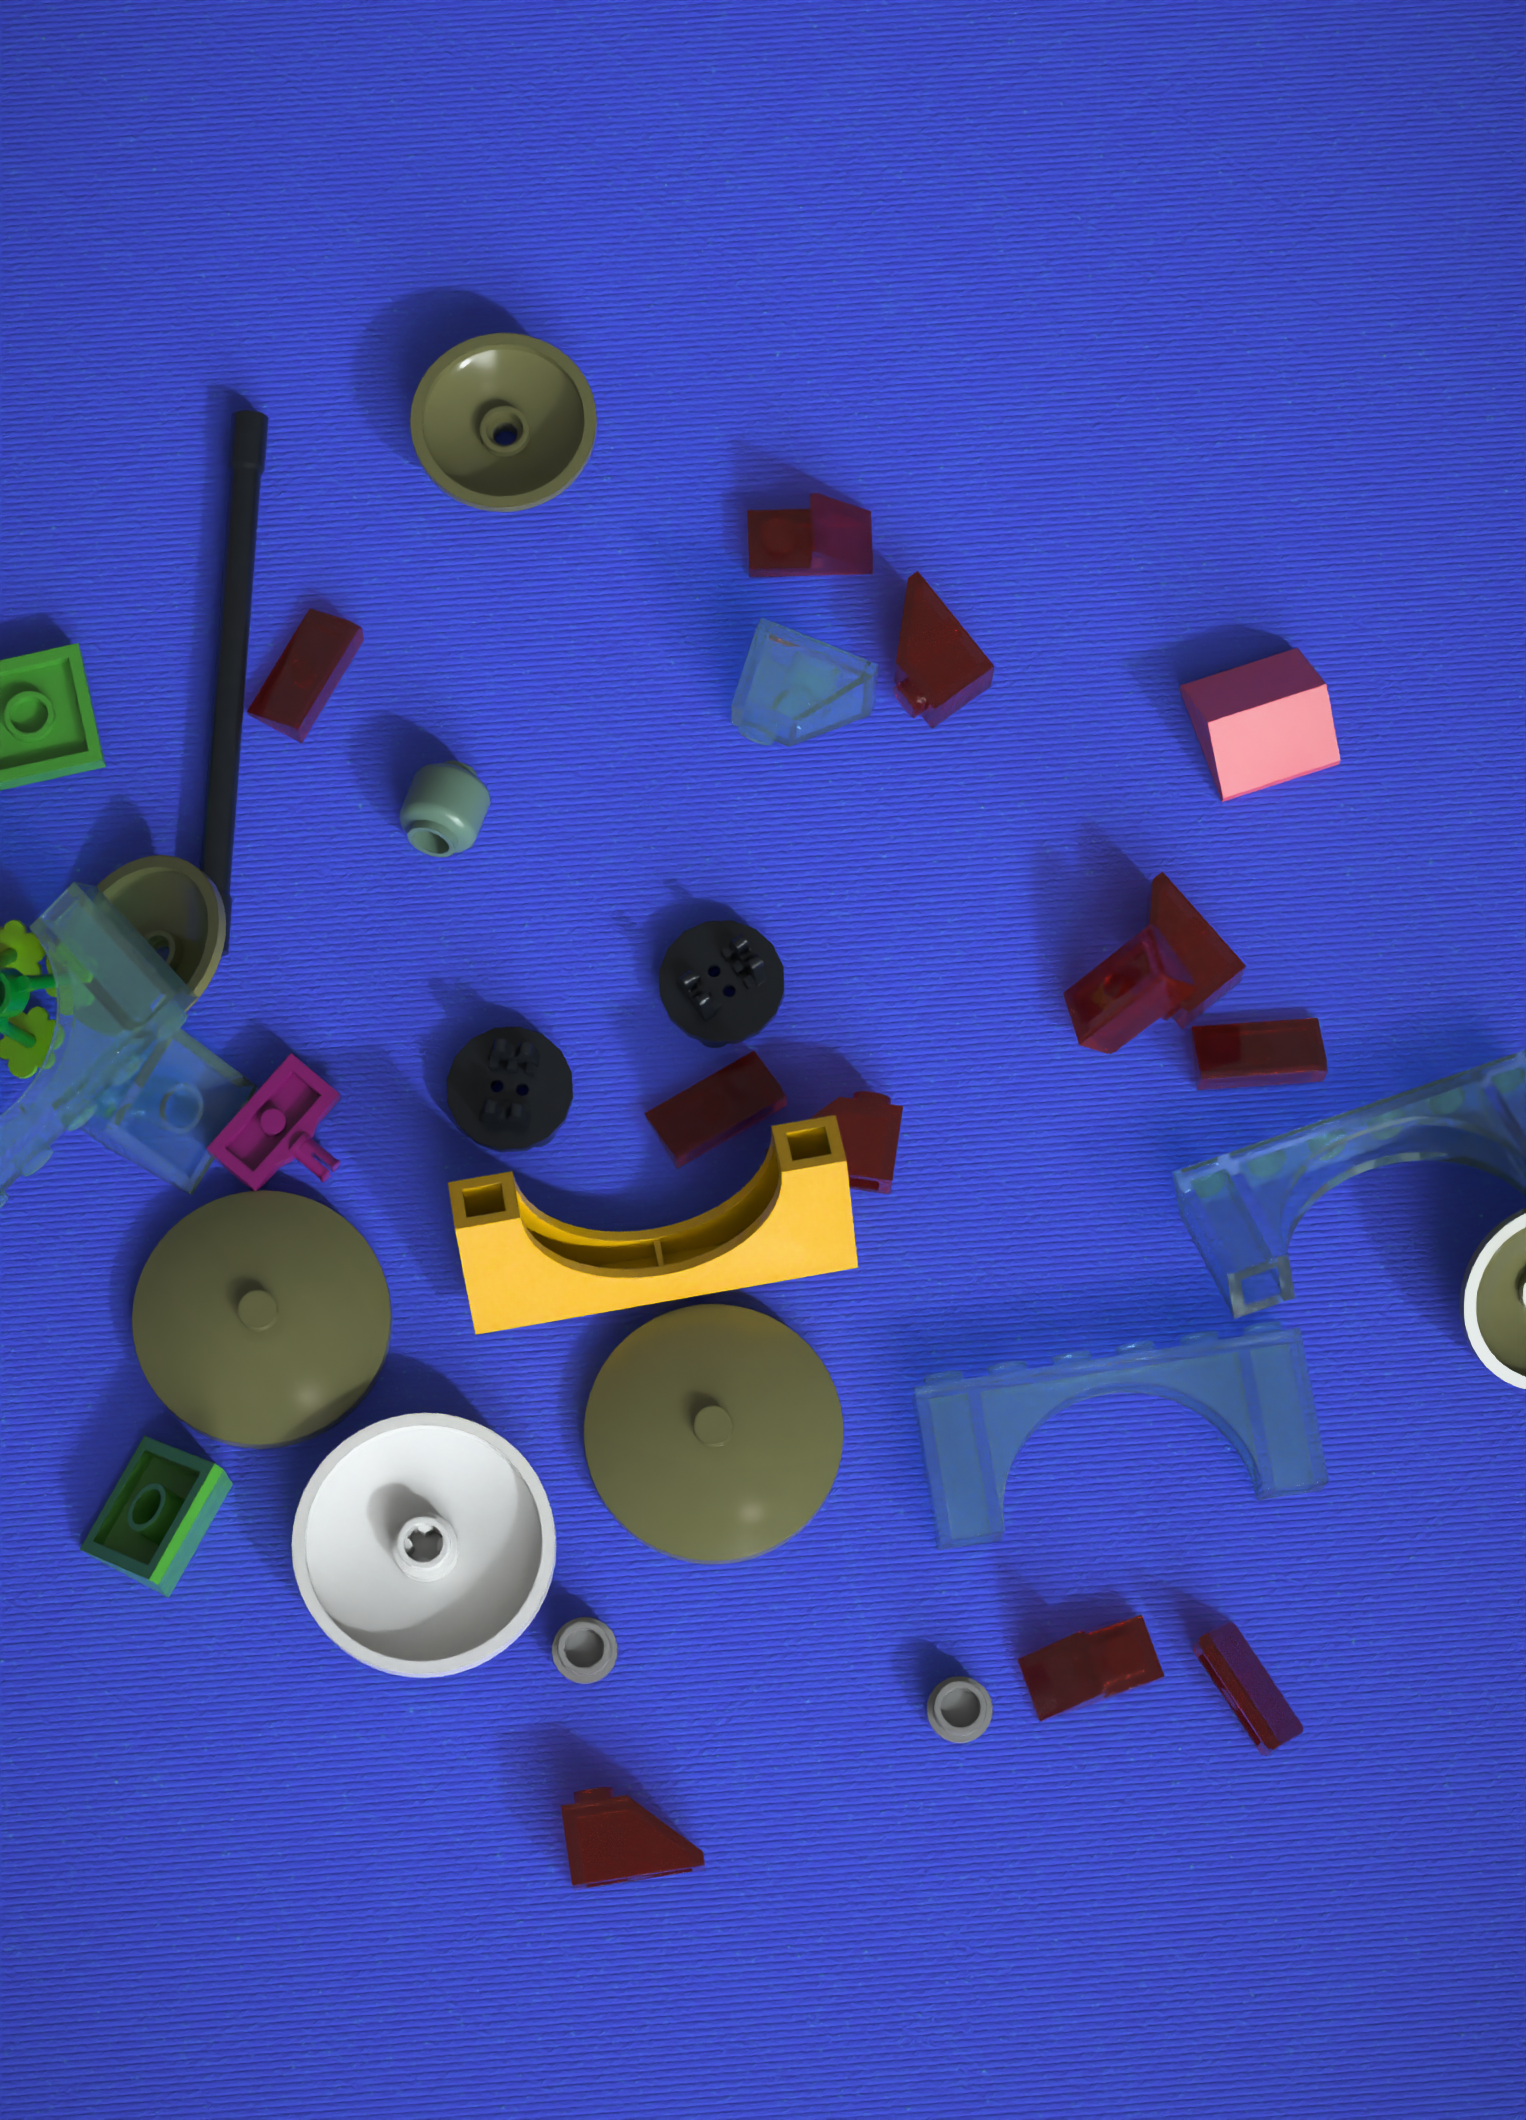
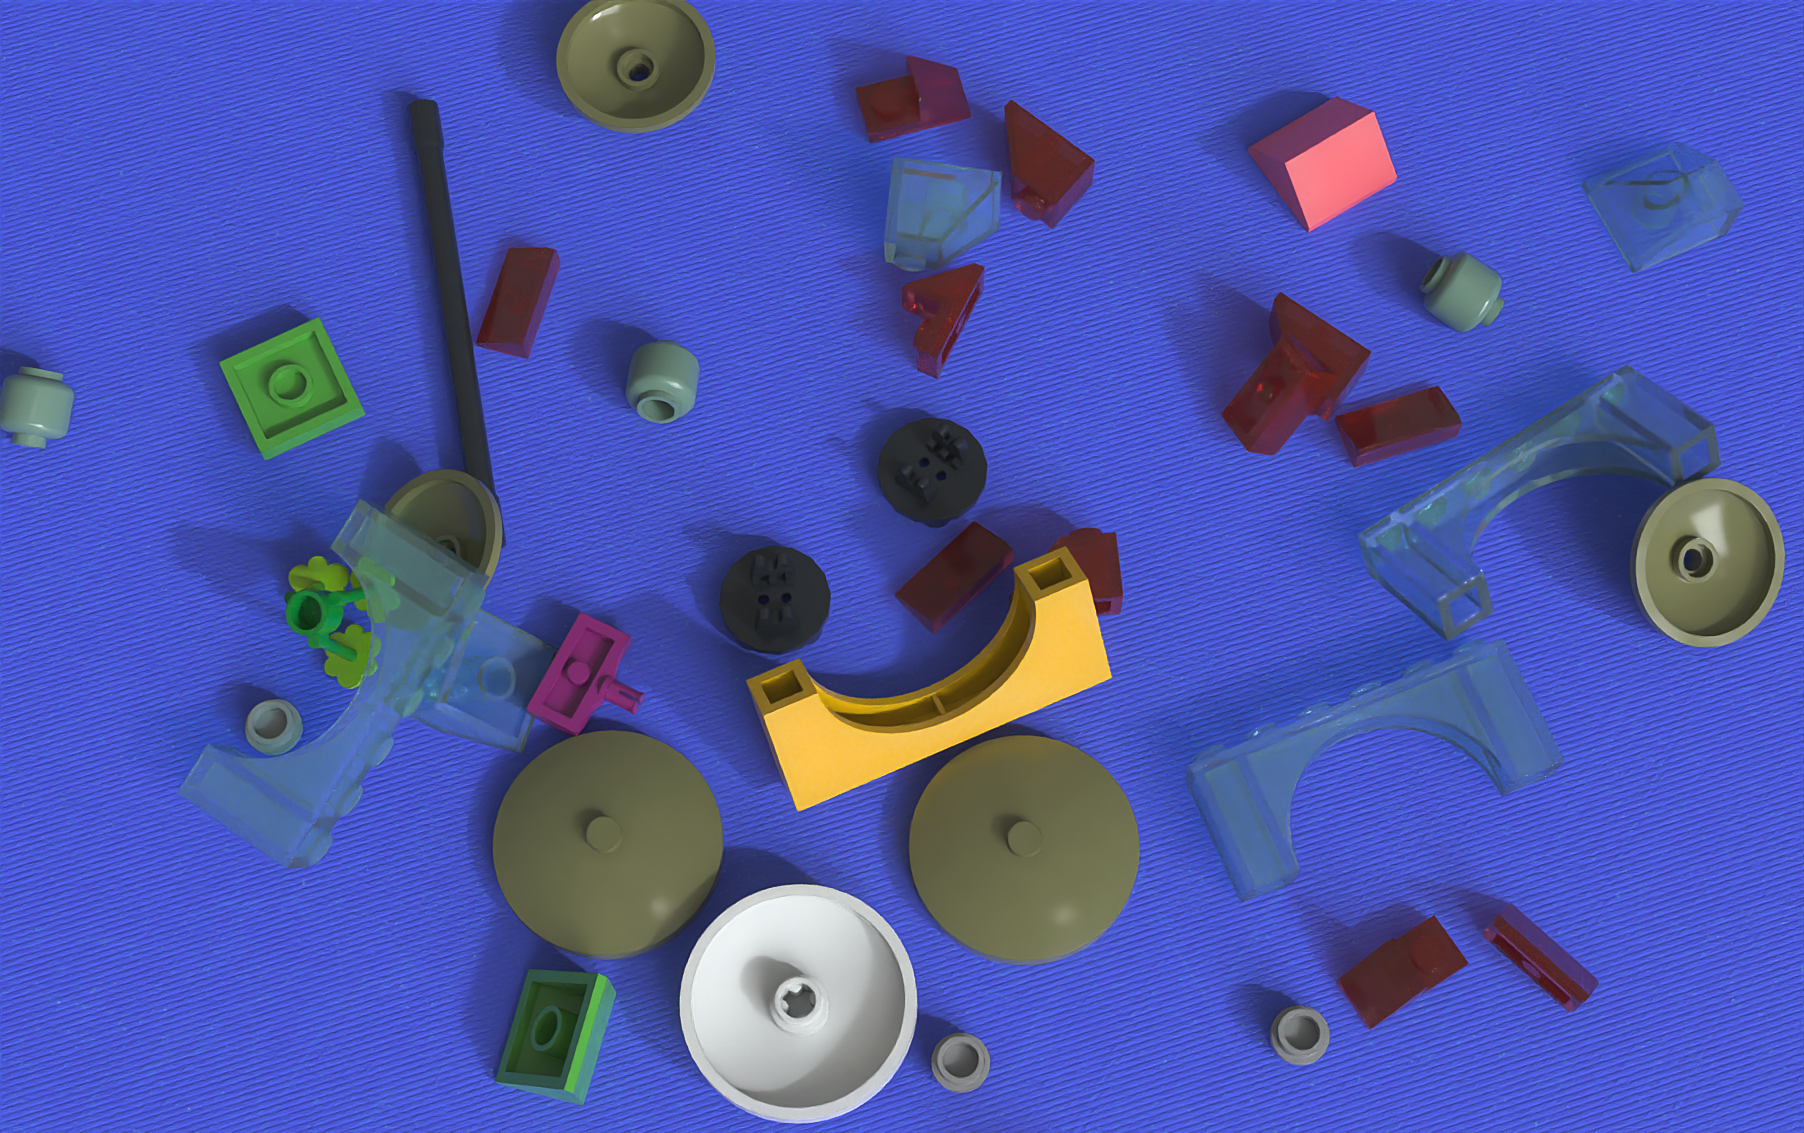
camera: 10 degrees left, 5 degrees down
(790, 792) = (946, 305): none -> clear red slope
(1373, 917) = (1462, 291): none -> sand green head

